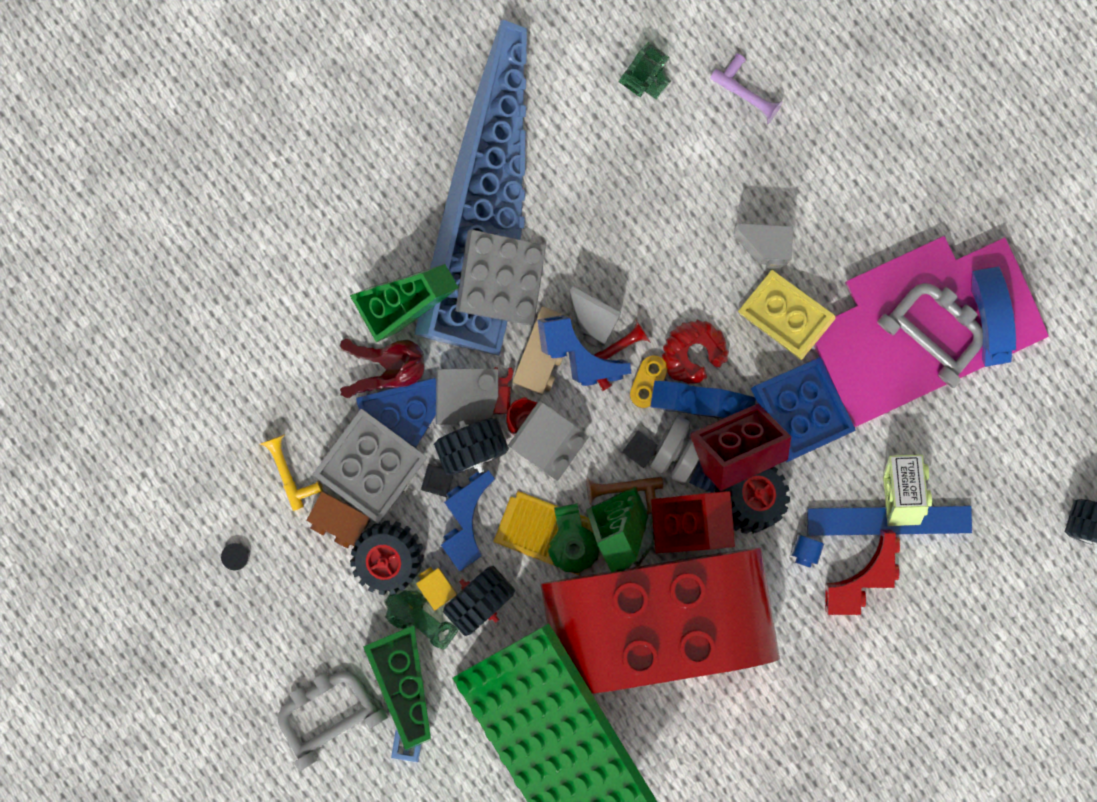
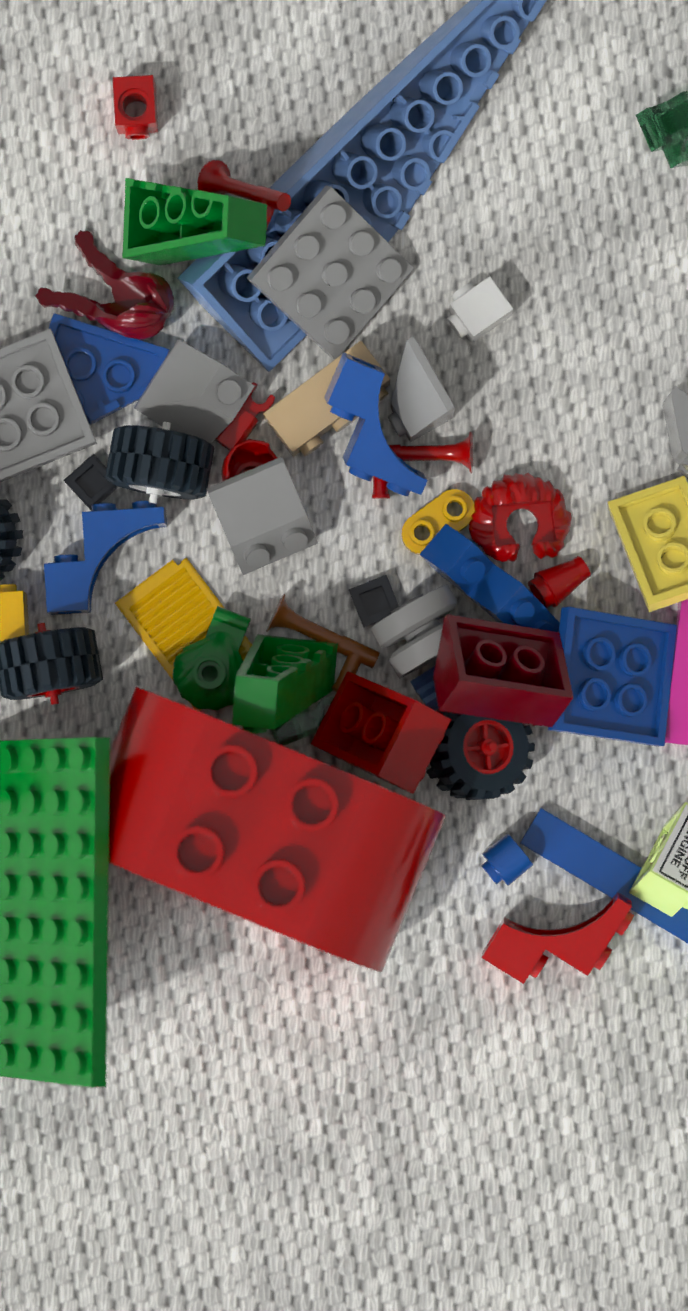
camera: 35 degrees right, 0 degrees up
(326, 239) = (133, 89): none -> red brick
(401, 264) = (216, 178): none -> red piece
(596, 247) = (478, 309): none -> white brick
(737, 375) = (558, 582): none -> red cone

